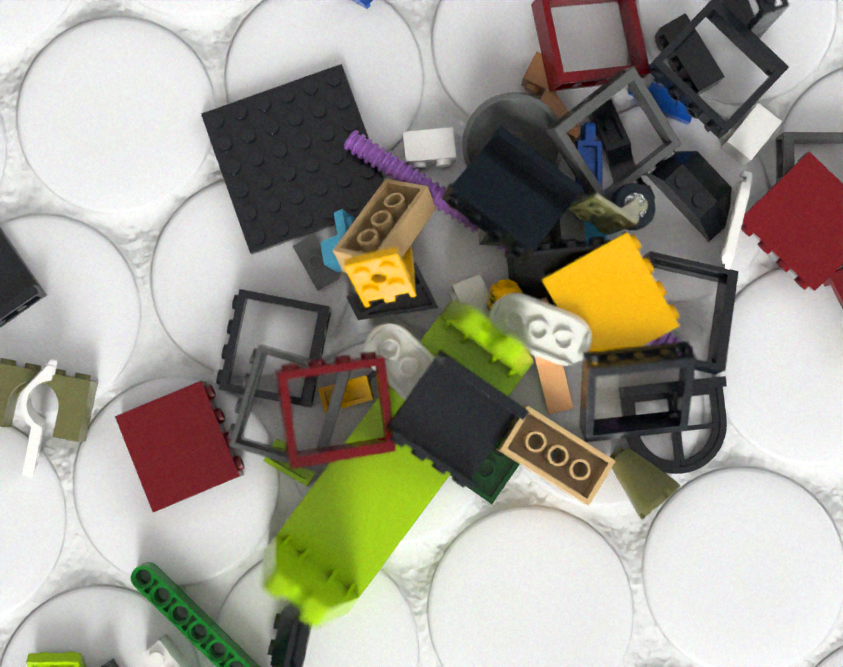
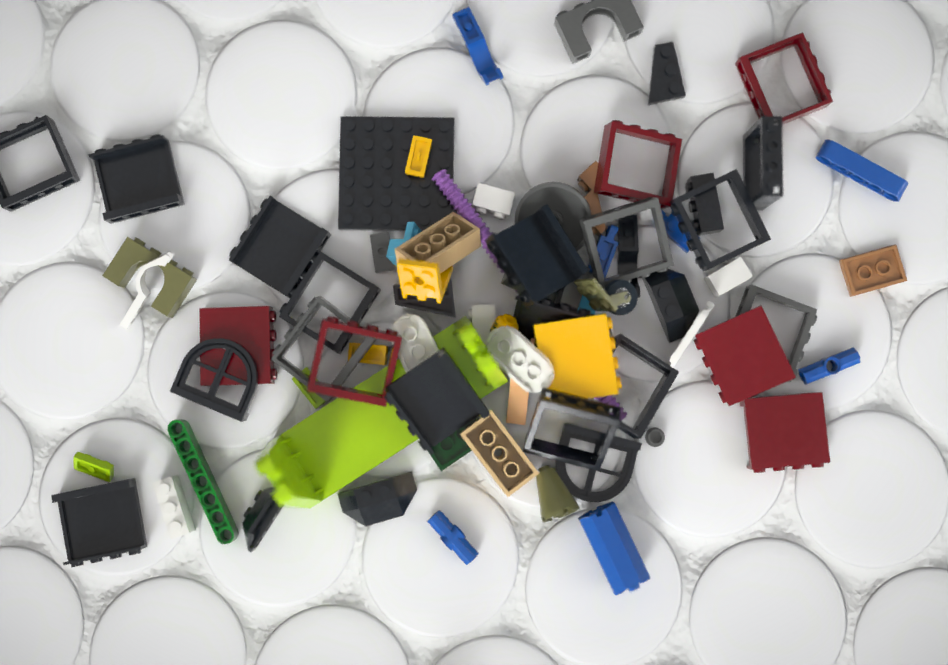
camera: 25 degrees right, 0 degrees up
(170, 525) = (209, 399): none -> black window
(184, 302) = (278, 246): none -> black panel
(316, 126) = (418, 156): none -> yellow plate
(428, 569) = (379, 500): none -> black wedge
(537, 580) = (453, 537): none -> blue piece
(737, 363) = (654, 437): none -> dark grey plate
(742, 518) = (614, 548): none -> blue brick

